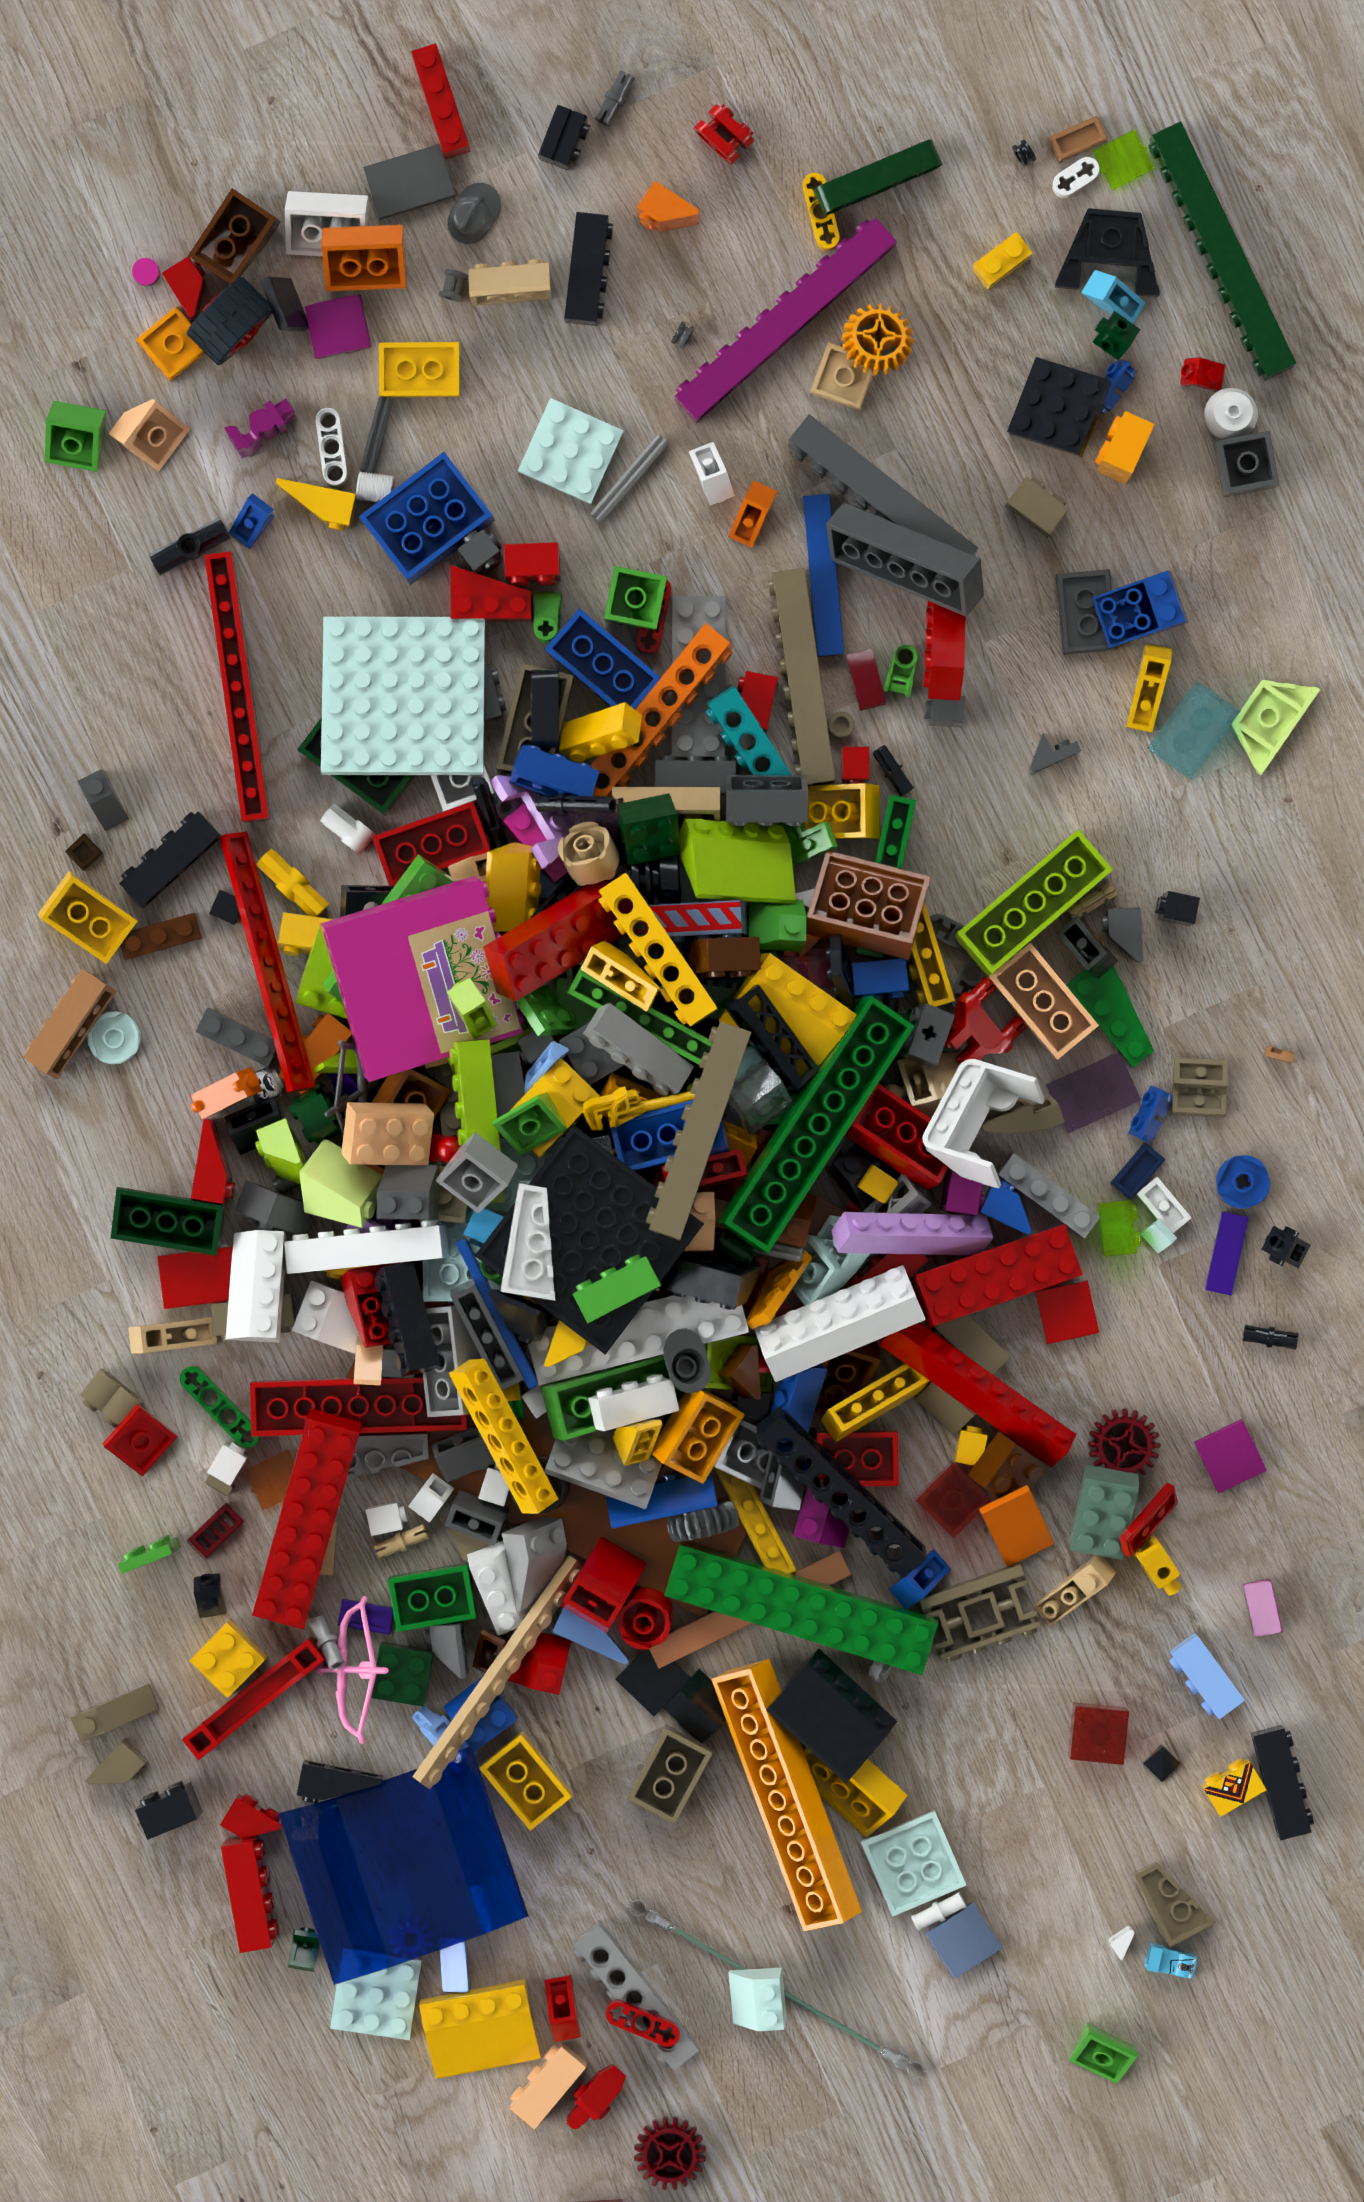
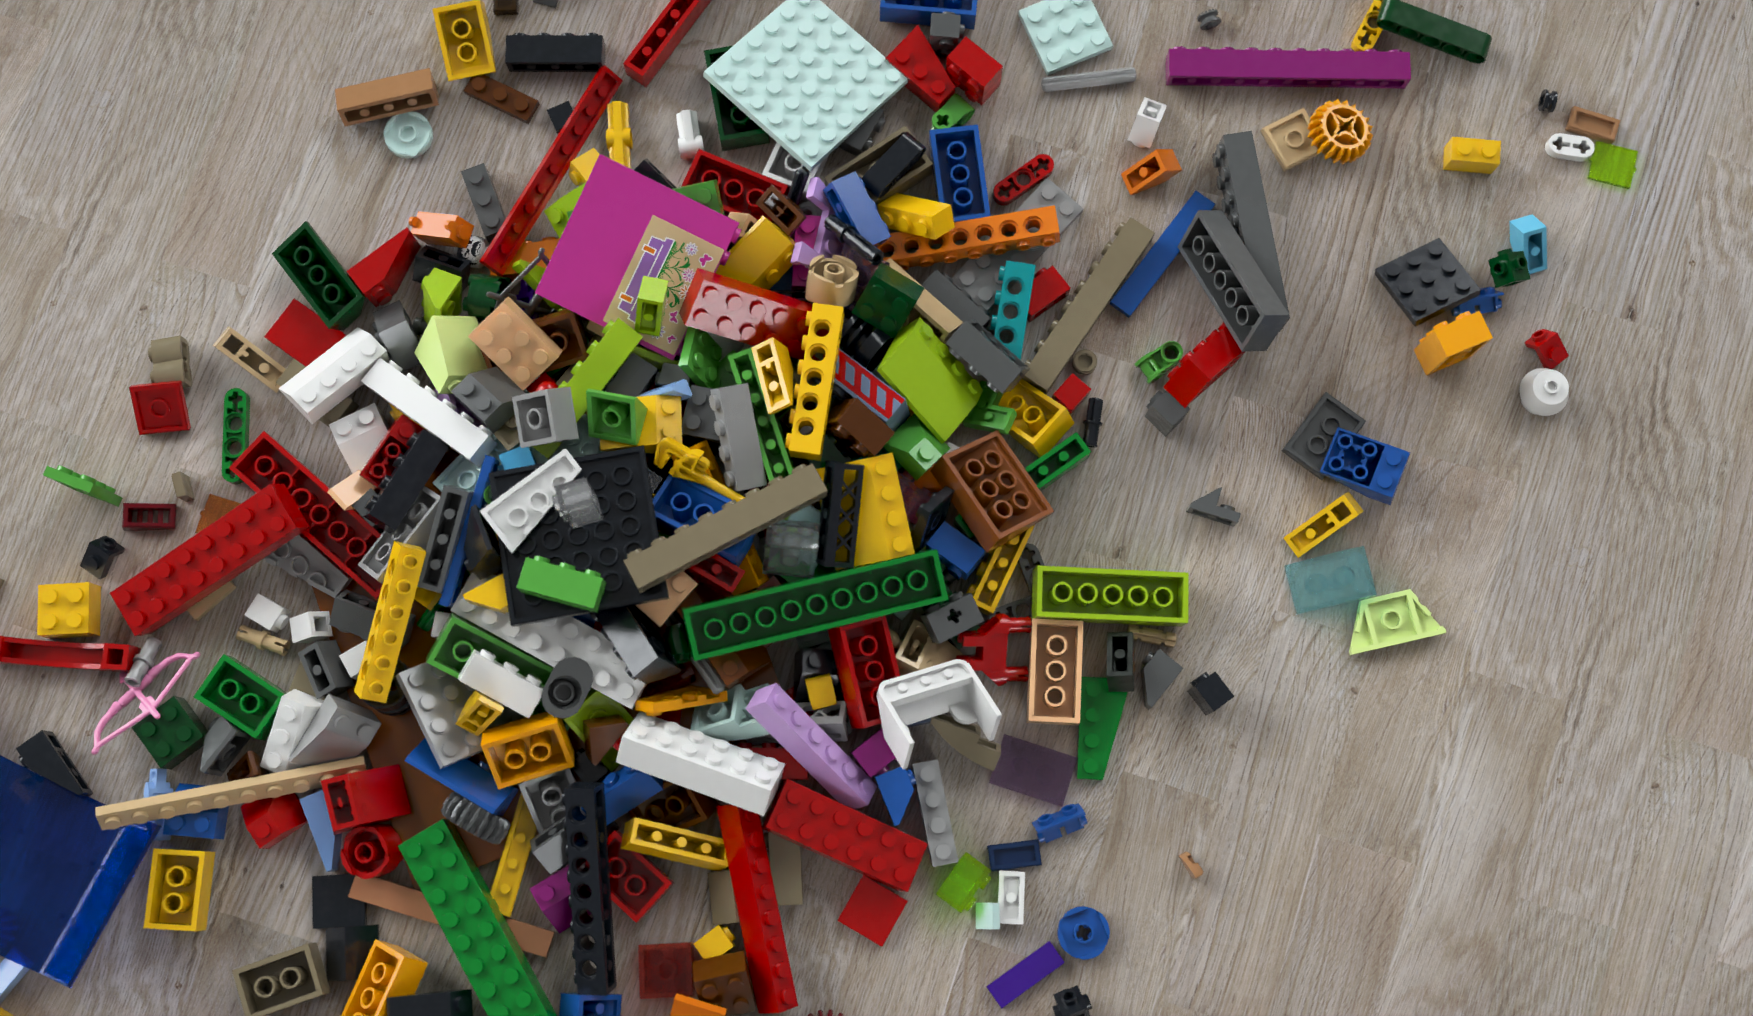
camera: 45 degrees right, 10 degrees down
(228, 1463) = (201, 478): white brick -> none
(378, 1616) = (194, 674): dark purple tile -> none
(492, 829) = (781, 210): none -> reddish brown slope
(575, 1218) = (577, 503): none -> clear brick
(635, 598) = (1020, 152): bright green slope -> none
(866, 679) = (1129, 346): dark red slope -> none
(1037, 505) = (1353, 334): dark tan brick -> none
(1114, 240) = (1559, 207): black wing -> none
(1199, 1087) = (1112, 836): dark tan slope -> none
(1222, 251) = (1632, 280): dark green brick -> none
(1246, 464) = (1527, 432): dark grey brick -> none

